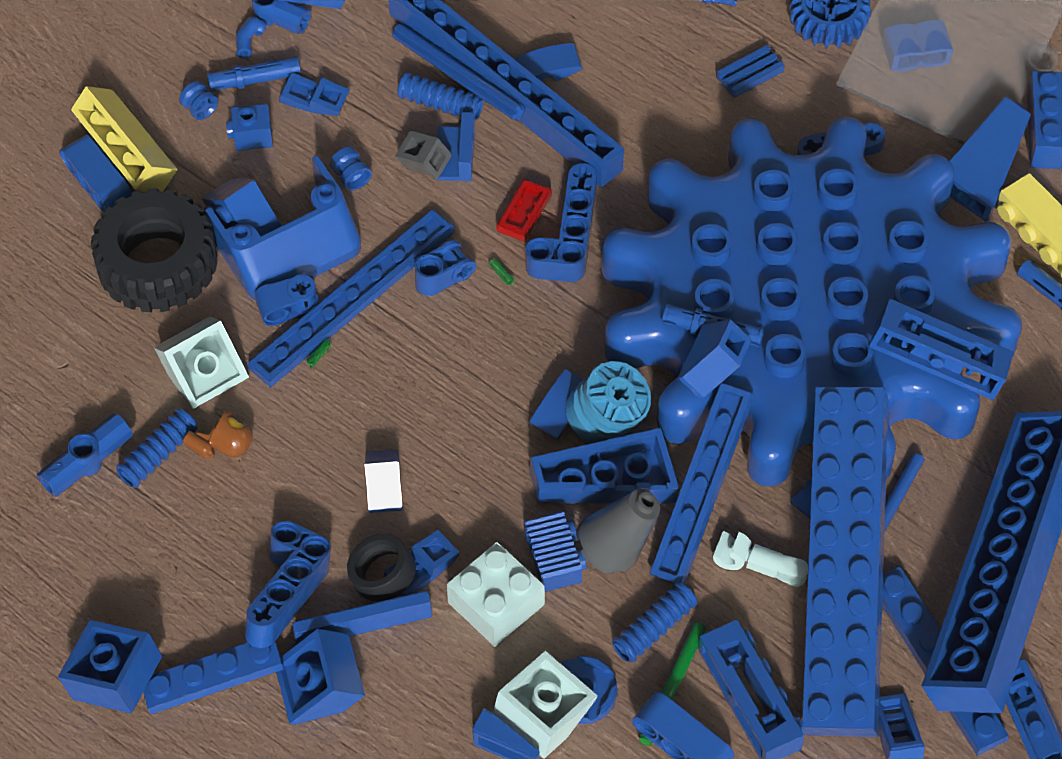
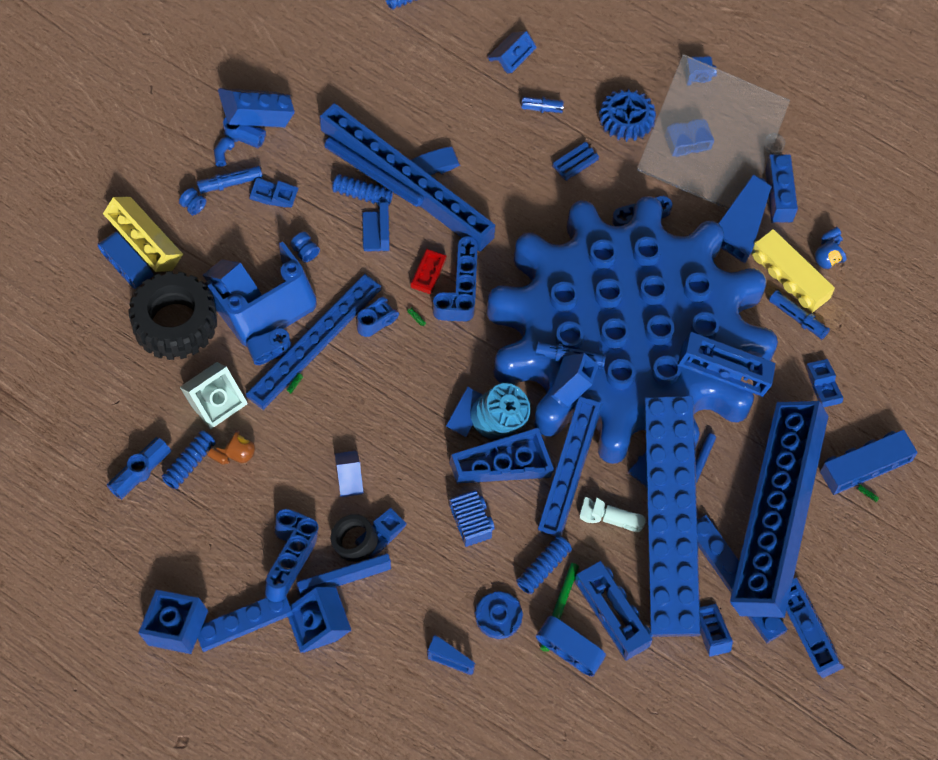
camera: 10 degrees left, 5 degrees up
(250, 127) = (231, 220): blue brick -> none
(423, 154) = (355, 234): dark grey brick -> none
(496, 594) = (434, 551): light aqua brick -> none
(544, 703) = (474, 628): light aqua slope -> none
(617, 533) = (515, 503): dark grey cone -> none

